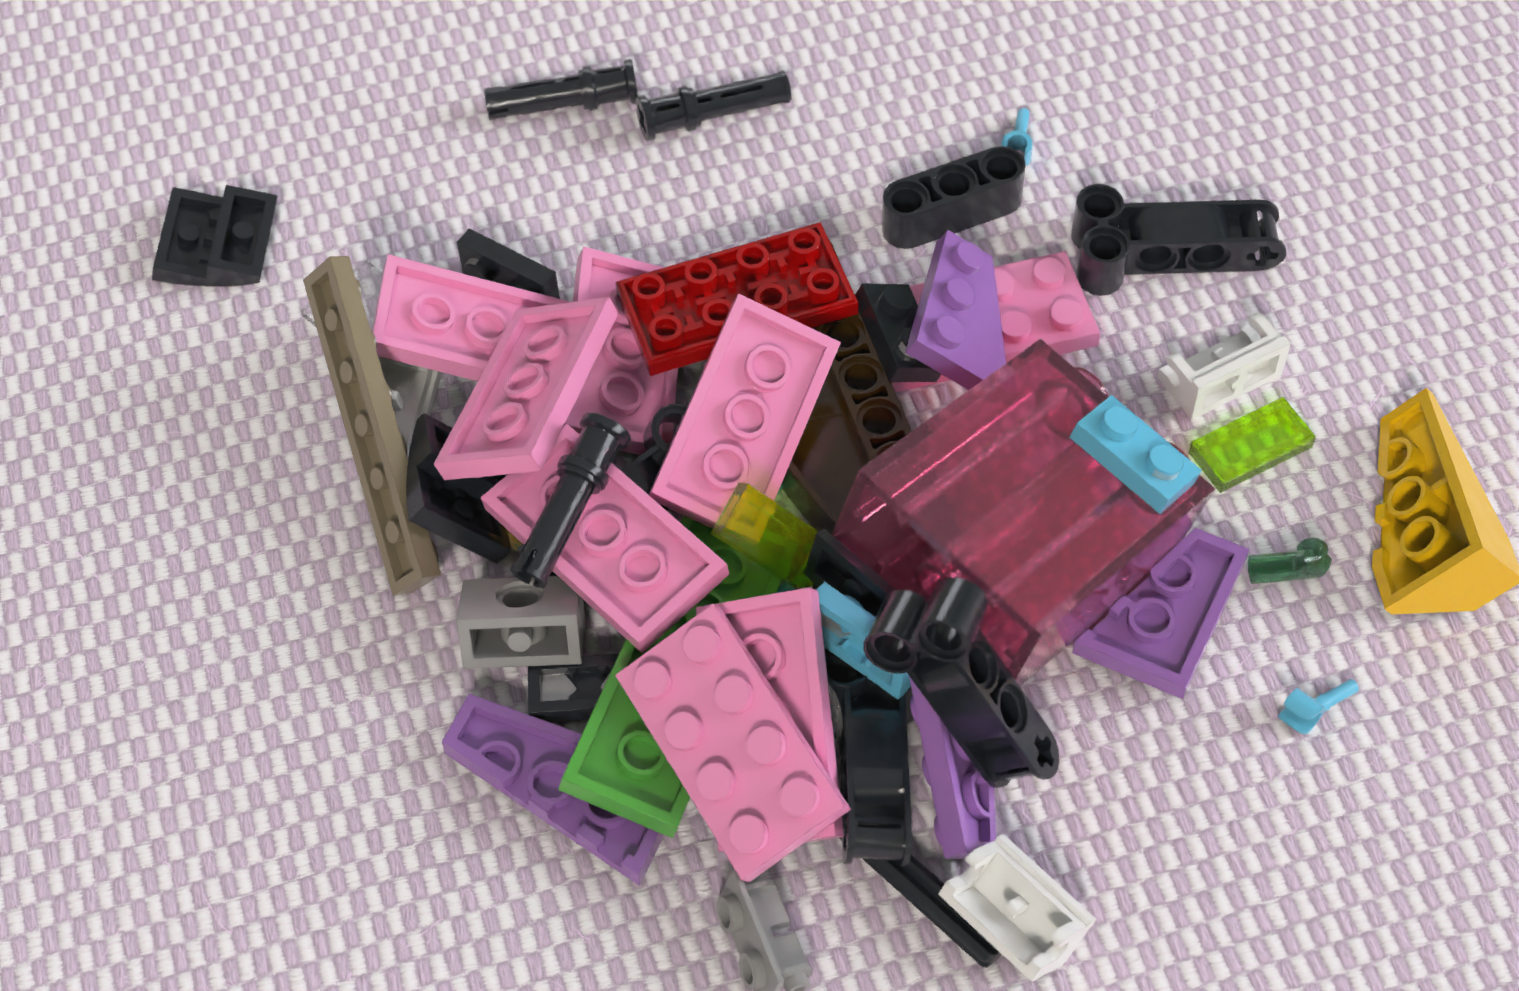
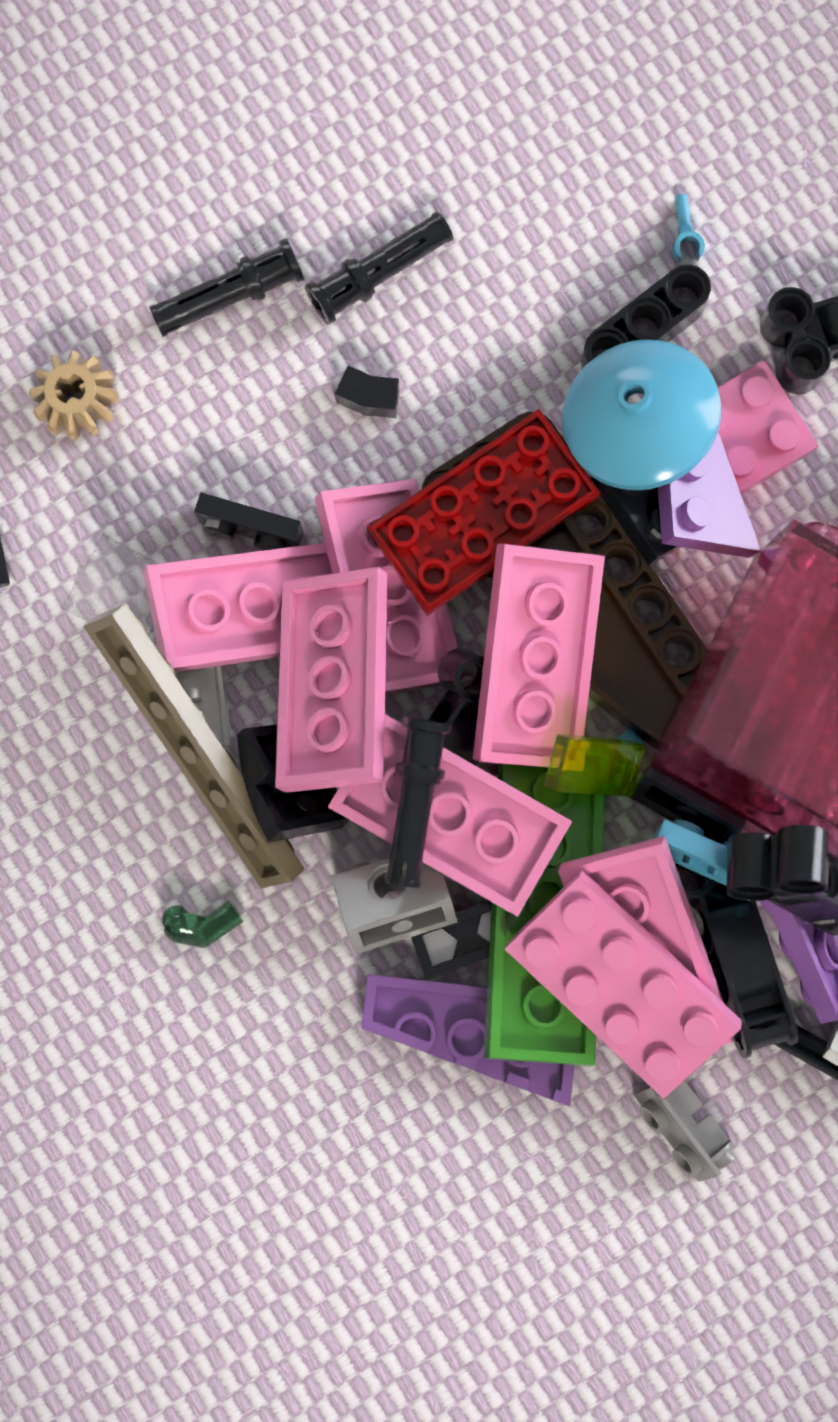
camera: 15 degrees left, 25 degrees up
(312, 616) = (199, 930): none -> clear green arm
(385, 140) = (73, 378): none -> tan gear
(665, 199) = (368, 393): none -> black piece
(919, 243) = (648, 440): none -> medium azure dish

